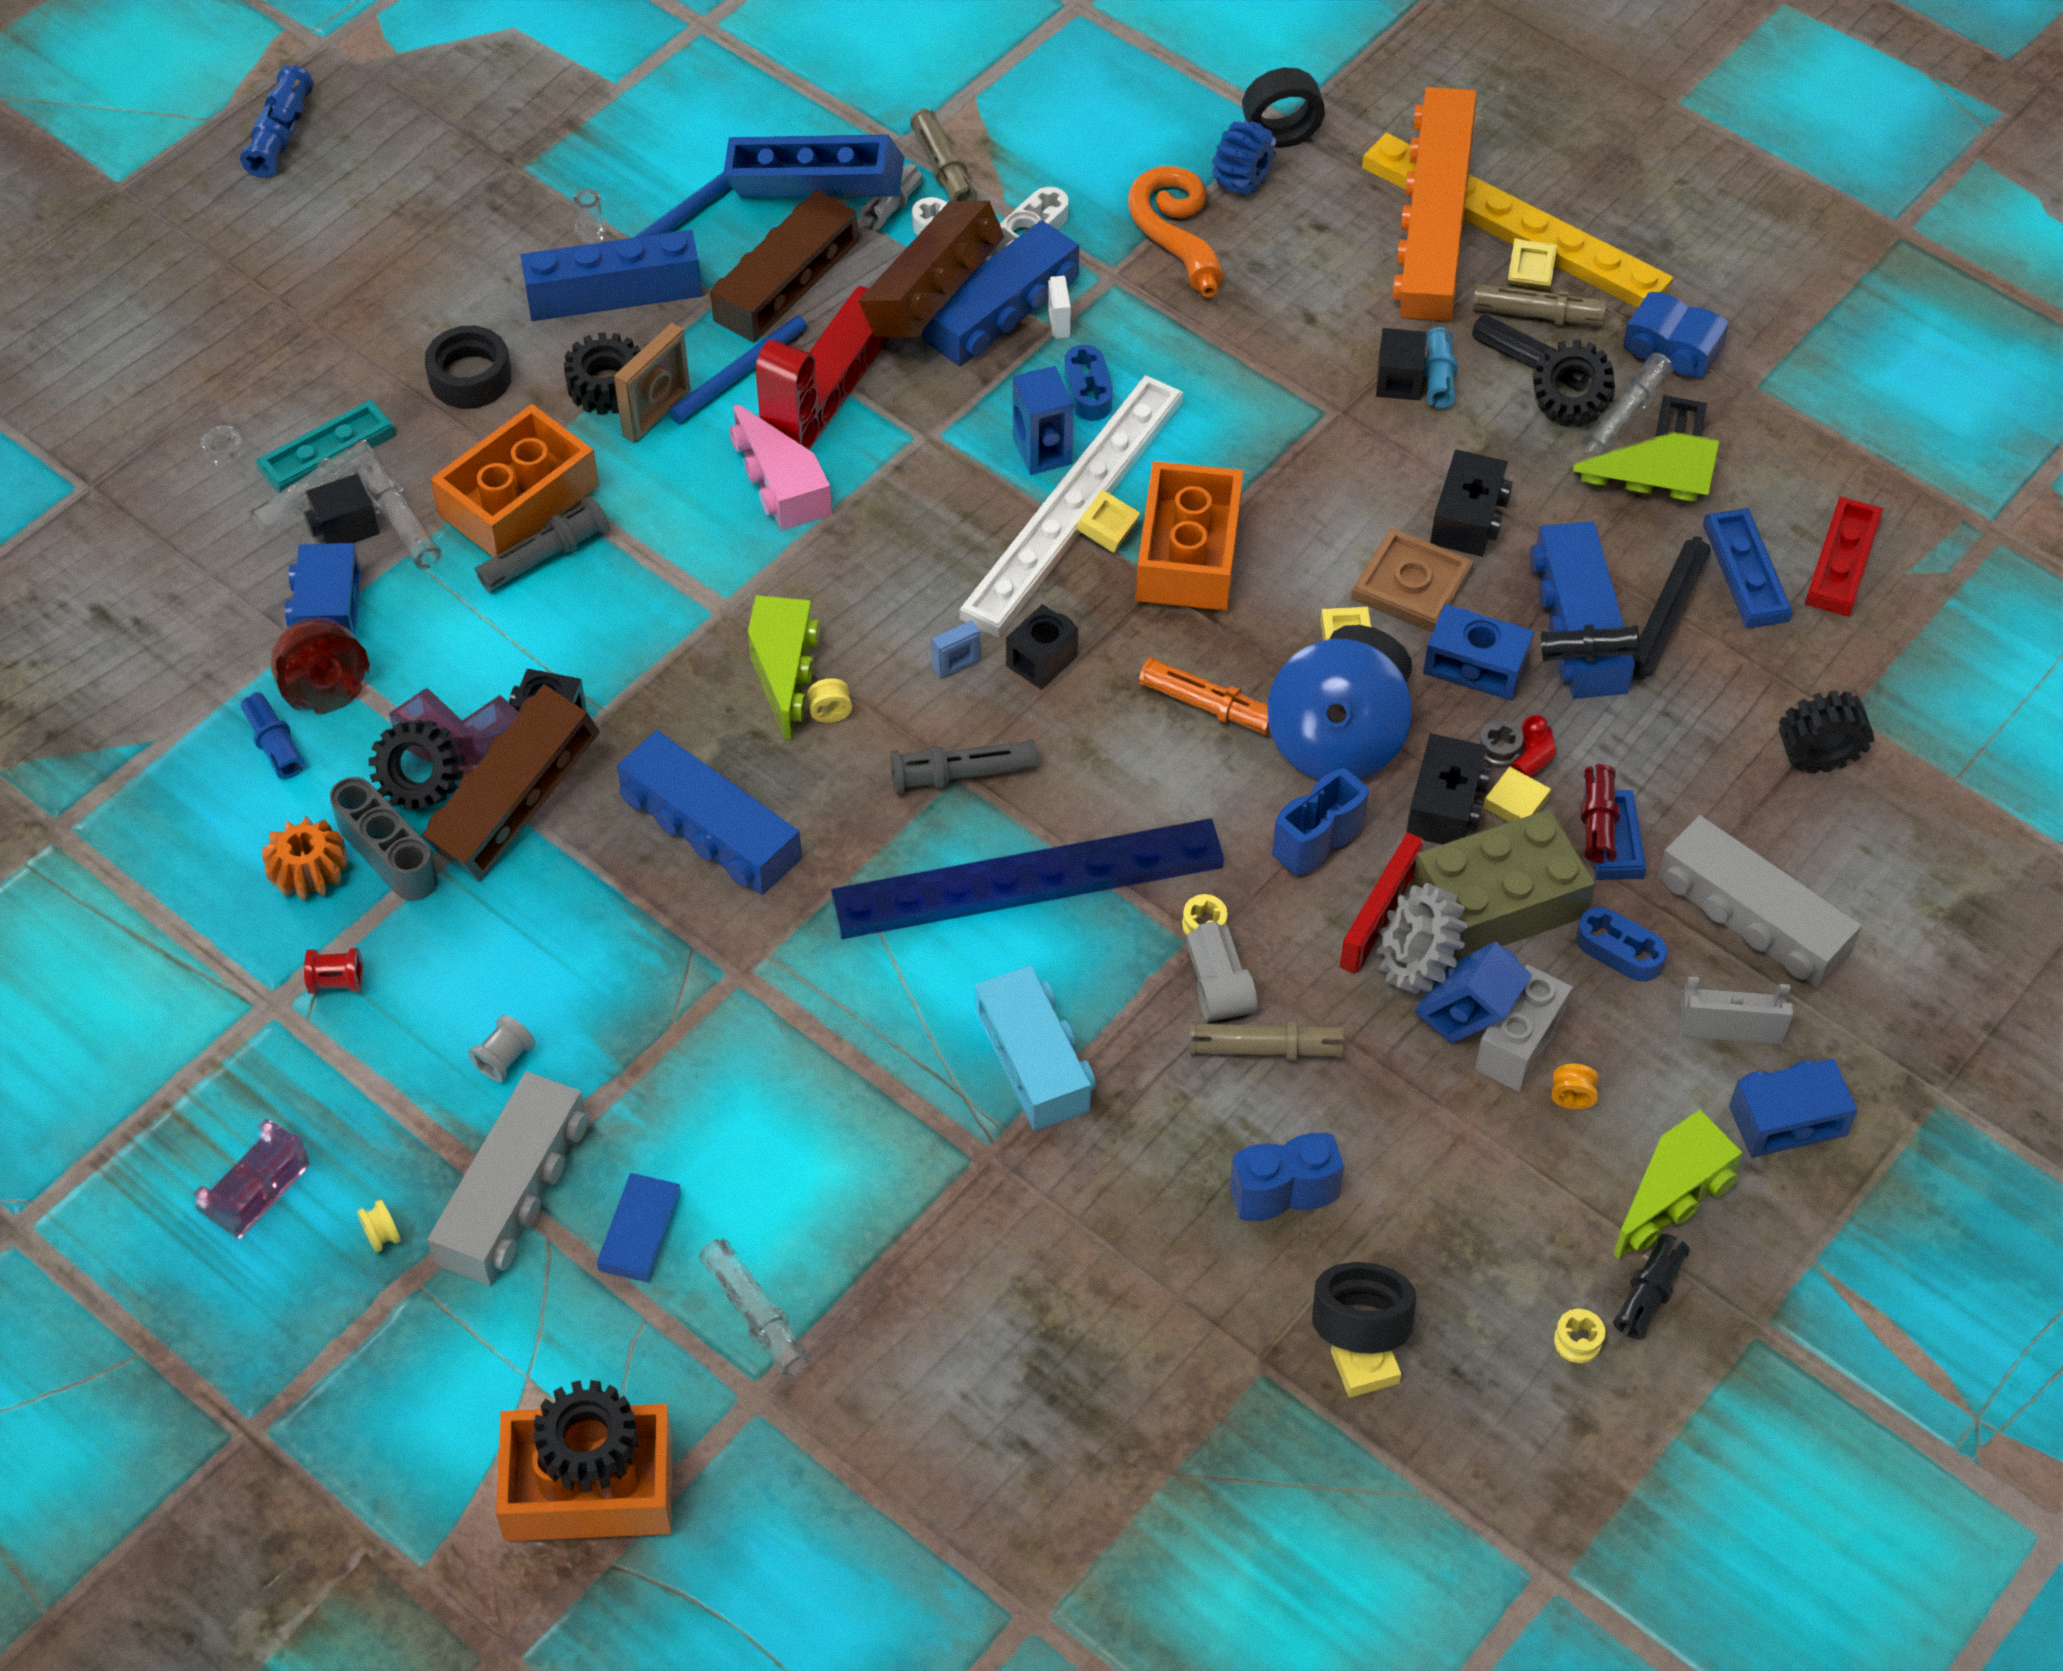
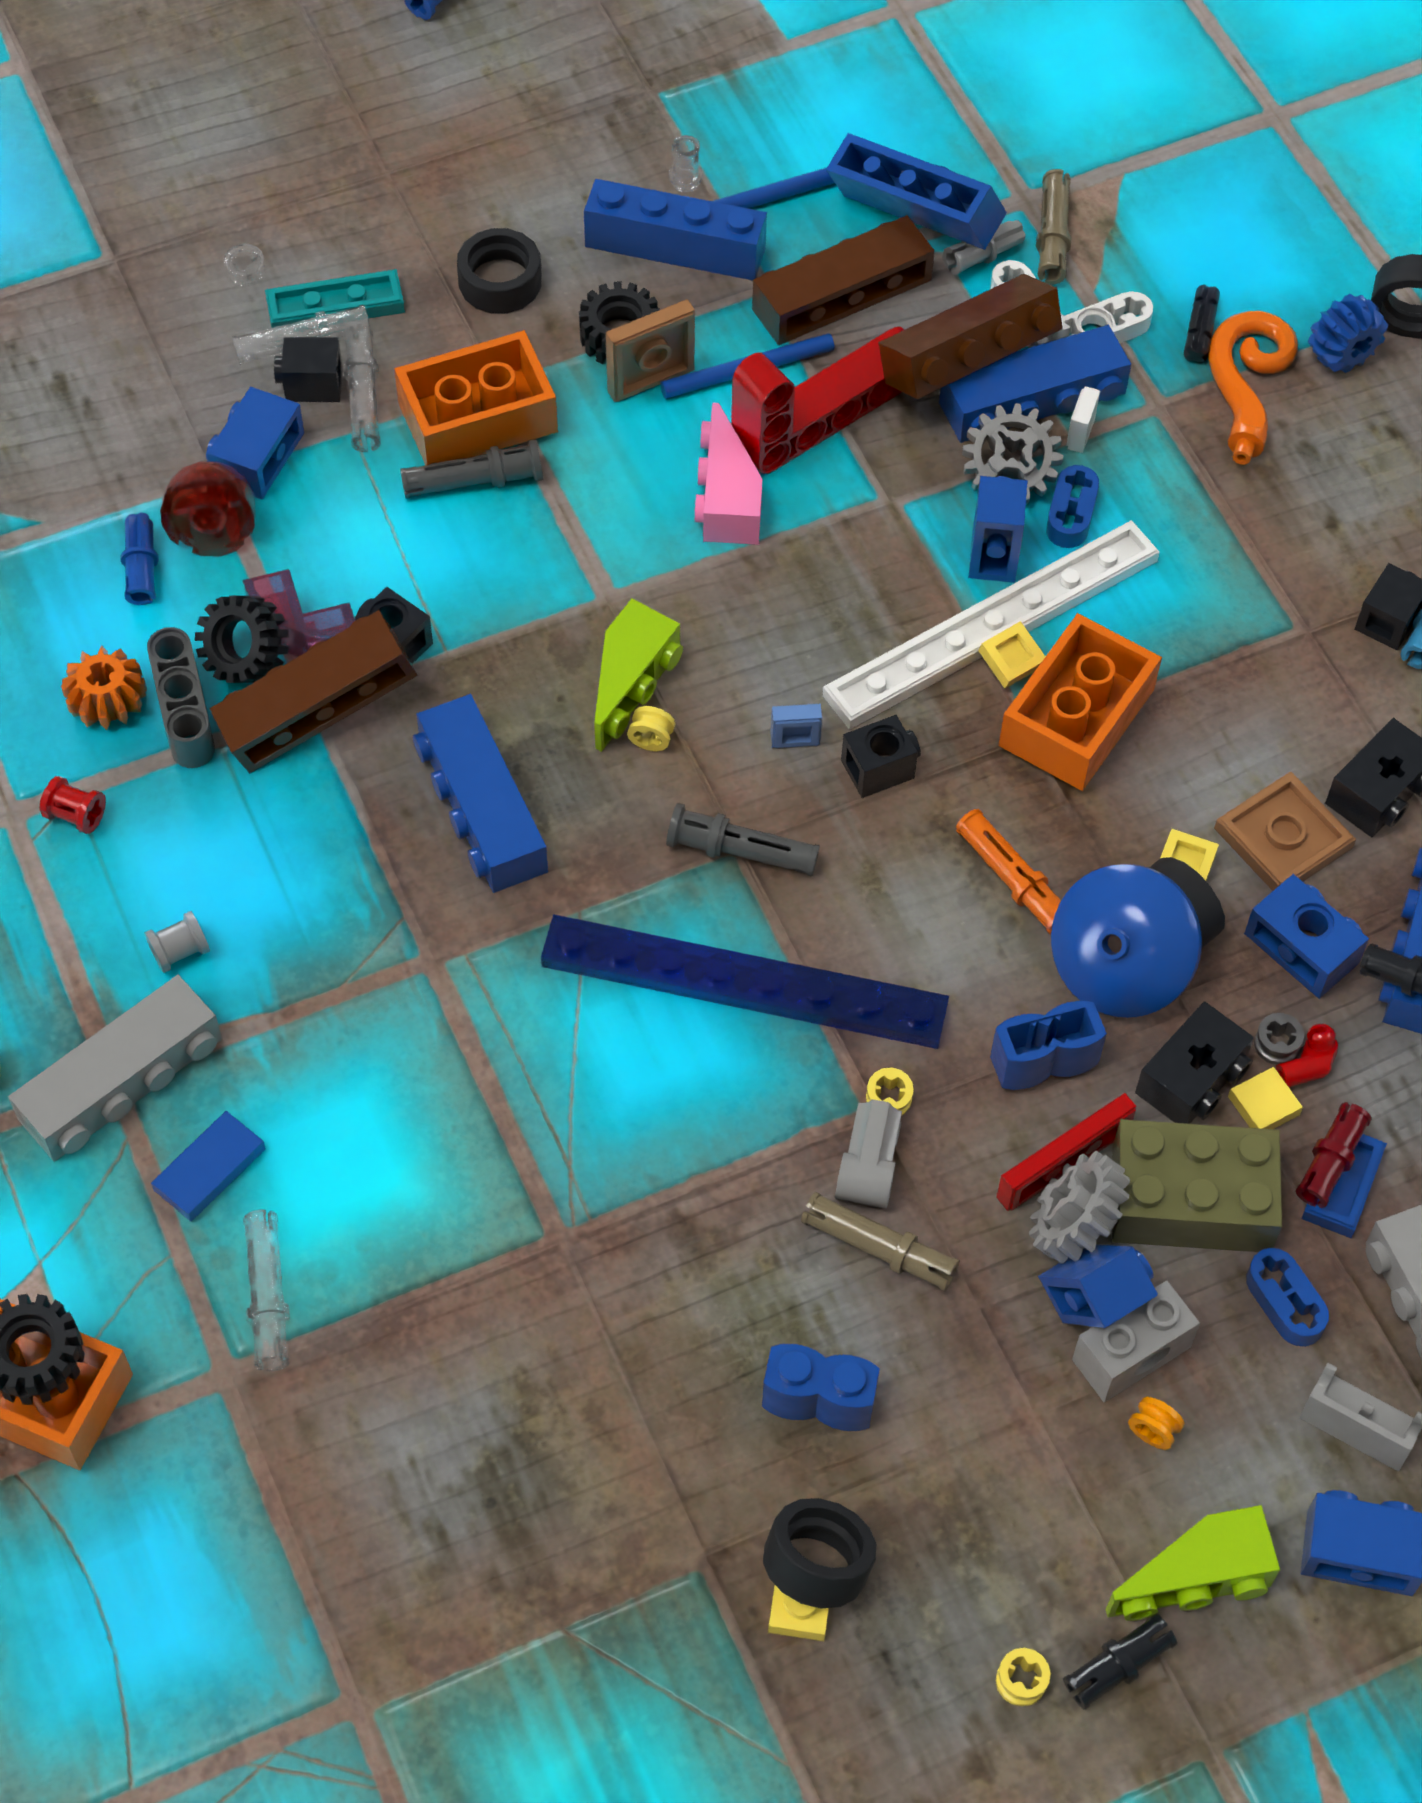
camera: 25 degrees right, 5 degrees up
(1003, 347) = (1027, 442): none -> light grey gear
(1034, 1047) = (655, 1152): medium azure brick -> none
(1113, 194) = (1201, 323): none -> black axle

